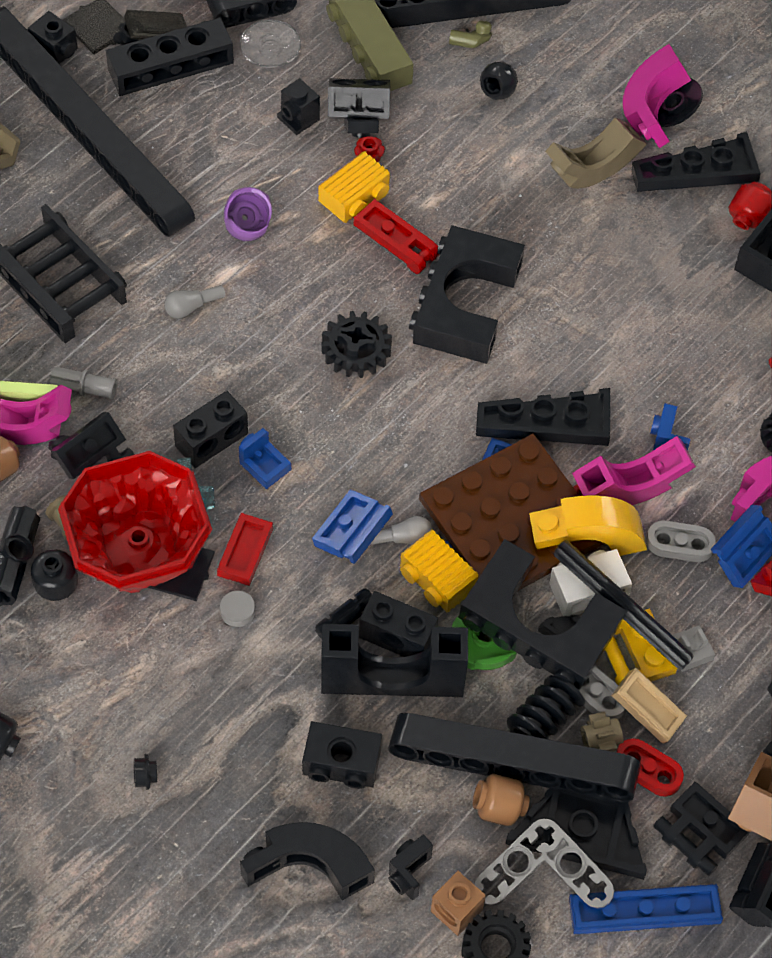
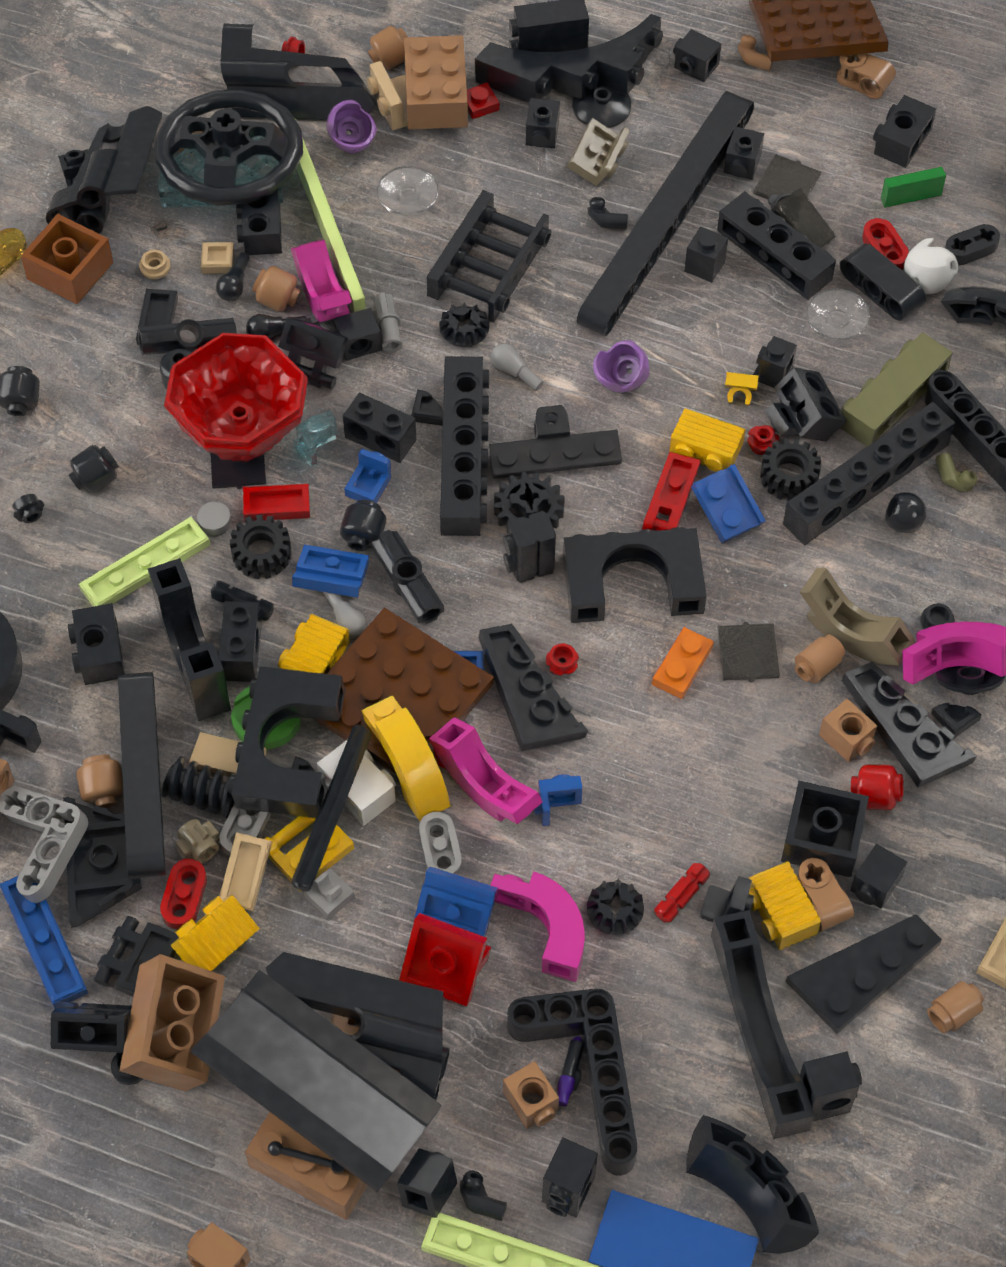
camera: 70 degrees right, 0 degrees up
(32, 487) = (267, 325): none -> black piece
(61, 170) = (603, 217): none -> black arm
(87, 403) = (362, 333): none -> black brick
(117, 334) = (468, 334): none -> black gear
(129, 693) = (93, 469): none -> black head
(153, 108) = (706, 254): none -> black brick
(185, 350) = (464, 399): none -> black brick
(201, 388) = (427, 409): none -> black tile
(260, 688) = (131, 570): none -> yellowish green tile
(292, 559) = (256, 531): none -> black tyre
(300, 303) = (554, 448): none -> black plate
(306, 139) = (741, 383): none -> yellow tile
(315, 481) = (362, 524): none -> black head
(407, 464) = (415, 590): none -> black piece
(412, 353) = (530, 547): none -> black brick
(416, 128) = (794, 454): none -> black tyre
(427, 198) = (728, 503): none -> blue plate
(448, 89) = (868, 473): none -> black brick
(511, 687) = (217, 753): none -> tan tile
(528, 373) = (565, 652): none -> red plate
(568, 295) = (682, 663): none -> orange plate
(576, 246) = (748, 652): none -> clear smoke piece
(607, 104) = (936, 615): none -> black plate
(612, 196) = (819, 658): none -> medium nougat brick
(690, 204) = (848, 717): none -> medium nougat brick
(702, 132) = (956, 717): none -> black tile
(711, 750) = (215, 934): none -> yellow brick

